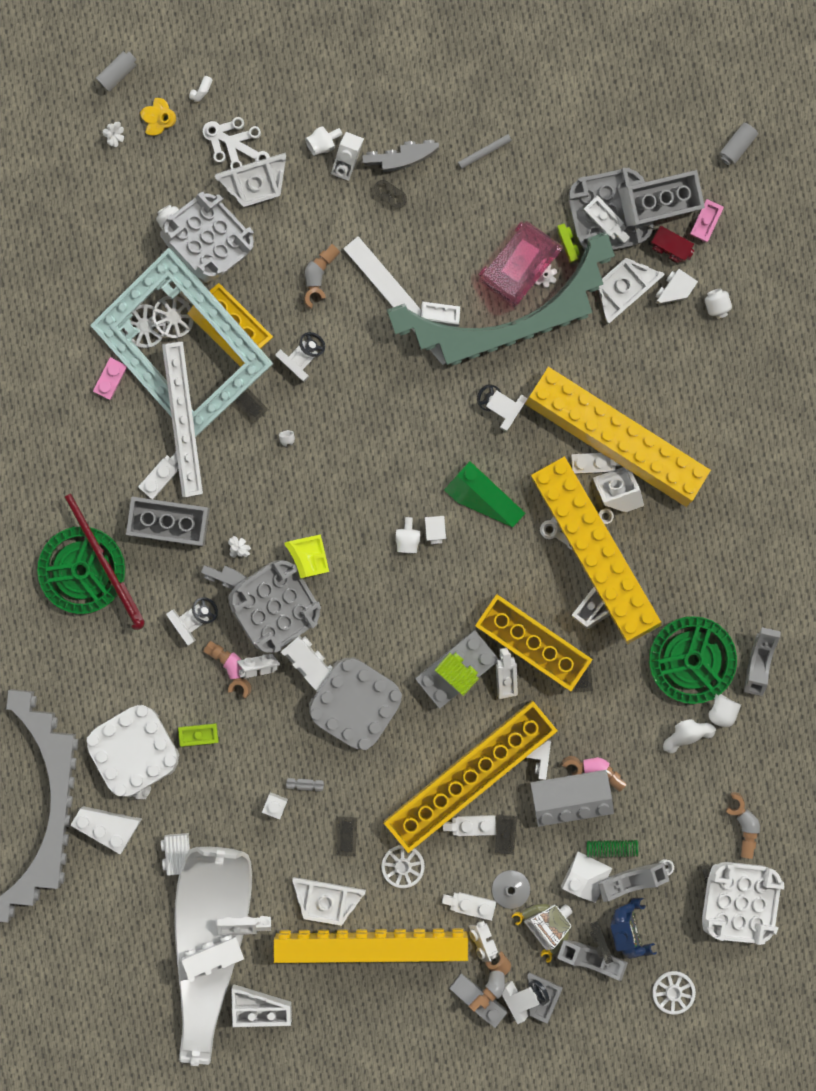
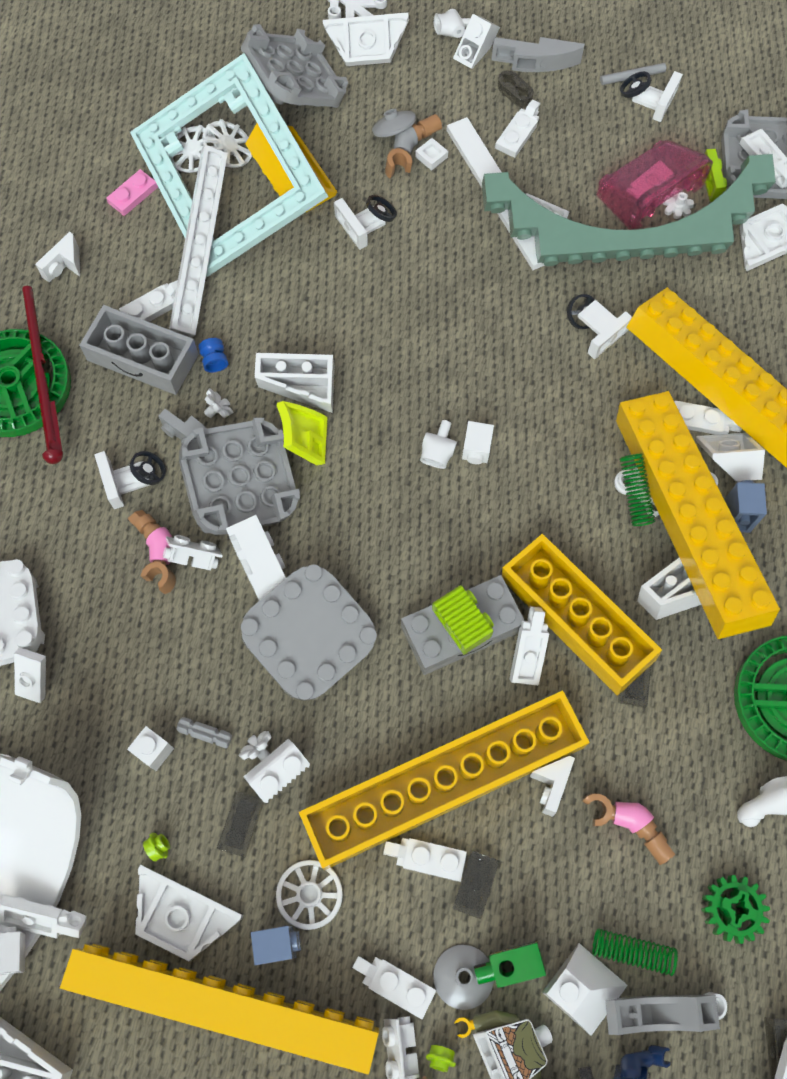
camera: 20 degrees right, 20 degrees down
(81, 451) = (62, 255): none -> white slope
(180, 780) = (30, 675): none -> white plate
(198, 734) = (81, 624): lime plate -> none
(222, 508) = (214, 358): none -> blue wheel
(251, 405) = (285, 253): clear smoke plate -> none
(287, 437) = (322, 298): white hinge -> none
(292, 512) = (298, 377): none -> white wedge
(298, 864) = (156, 846): none -> lime plate
(305, 264) = (393, 123): none -> light grey dish
(338, 280) = (431, 154): none -> white plate
(342, 785) = (257, 747): none -> white plant
(361, 798) = (276, 770): none -> white brick
(392, 903) = (275, 944): none -> sand blue brick
(403, 236) = (519, 130): none -> white hinge
(479, 493) = (545, 414): green wedge -> none
(502, 170) = (650, 96): none -> white piece
(508, 939) = (441, 1058): none -> lime plate
(546, 872) = (526, 962): none -> green torso
(558, 531) = (634, 523): none -> green piece
(572, 798) = (590, 852): light grey slope -> none
(633, 533) = (747, 504): none -> sand blue brick
(669, 817) = (731, 920): none -> green gear

